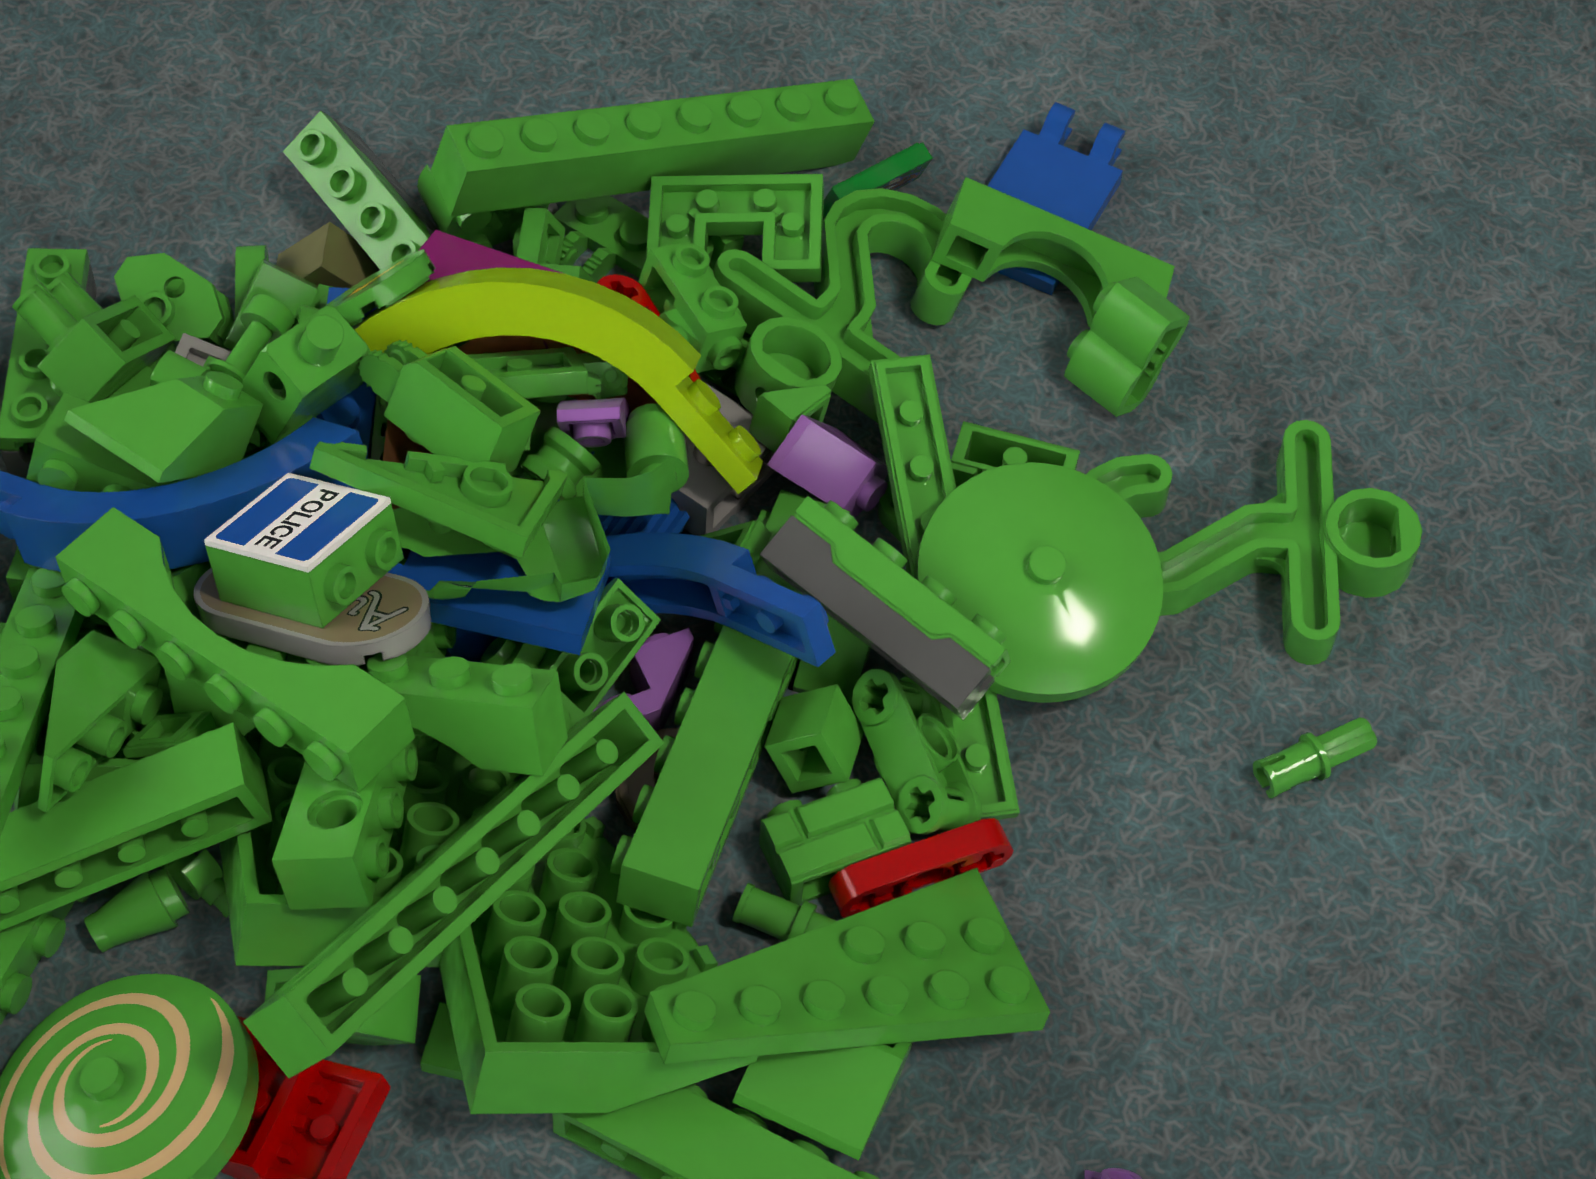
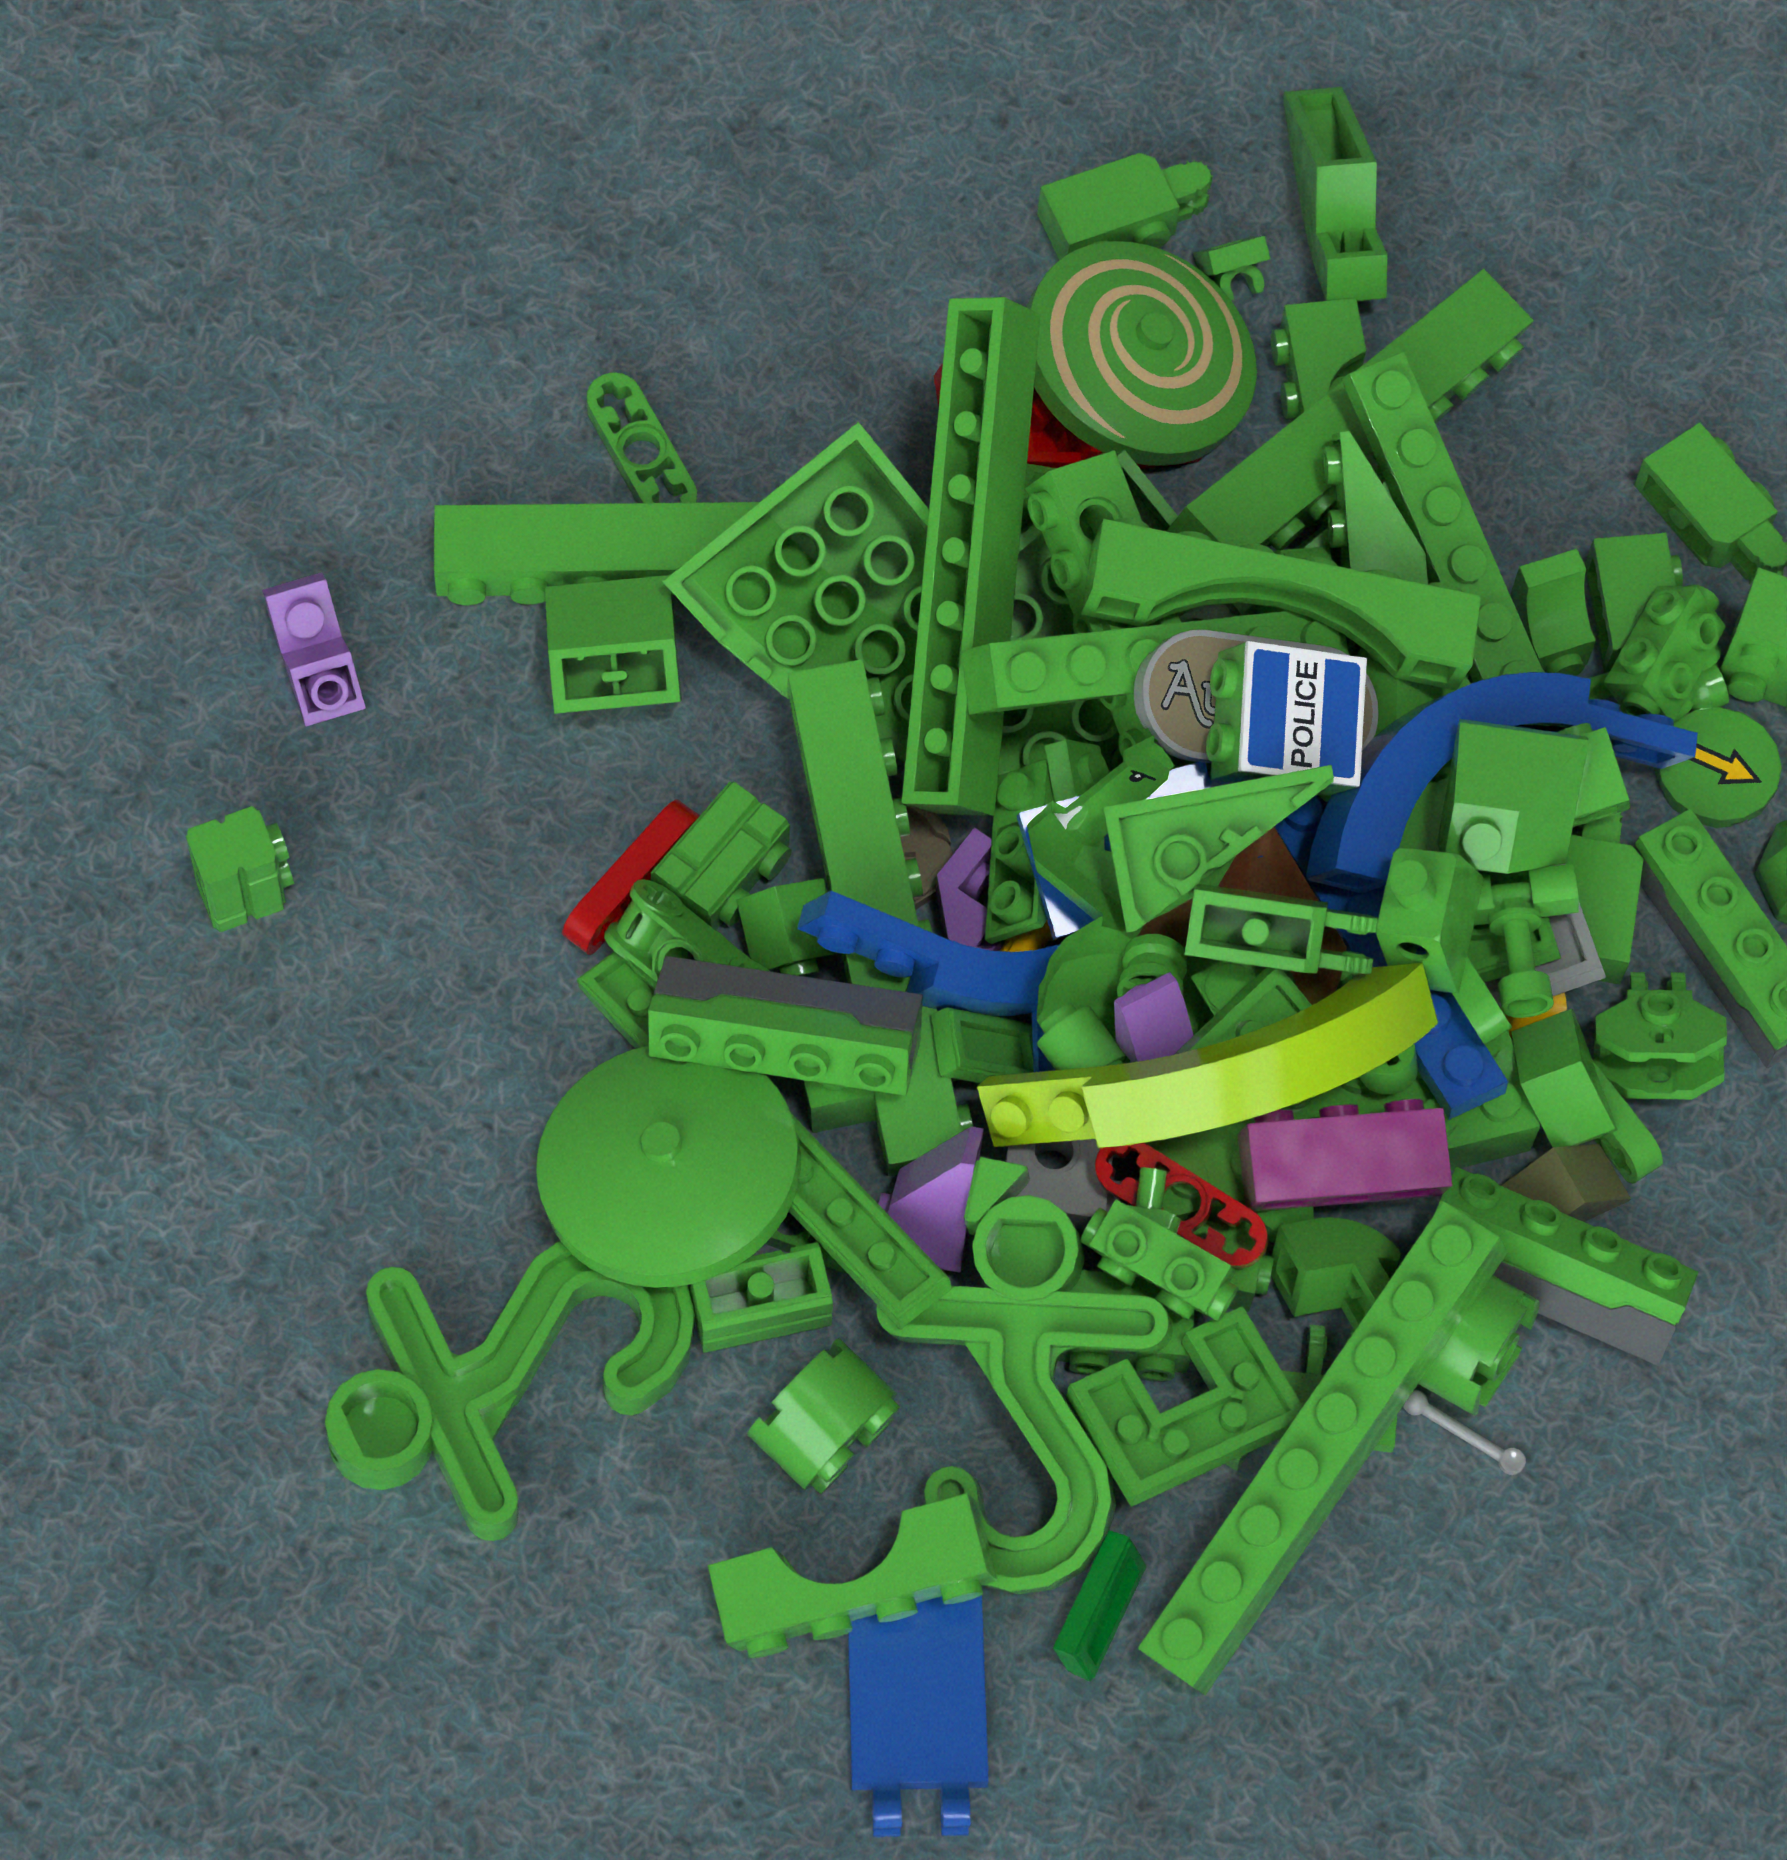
camera: 150 degrees right, 10 degrees up
(90, 346) = (1659, 923): bright green brick -> none
(384, 286) = (1434, 1037): bright green tile -> none
(777, 915) = (705, 775): bright green pin -> none
(887, 975) = (594, 731): bright green wing -> none
(1017, 358) = (823, 1415): none -> bright green brick
(1125, 345) = (727, 1505): bright green brick -> none
(1296, 1025) = (239, 867): none -> bright green brick
(1313, 756) = (334, 1175): bright green axle -> none

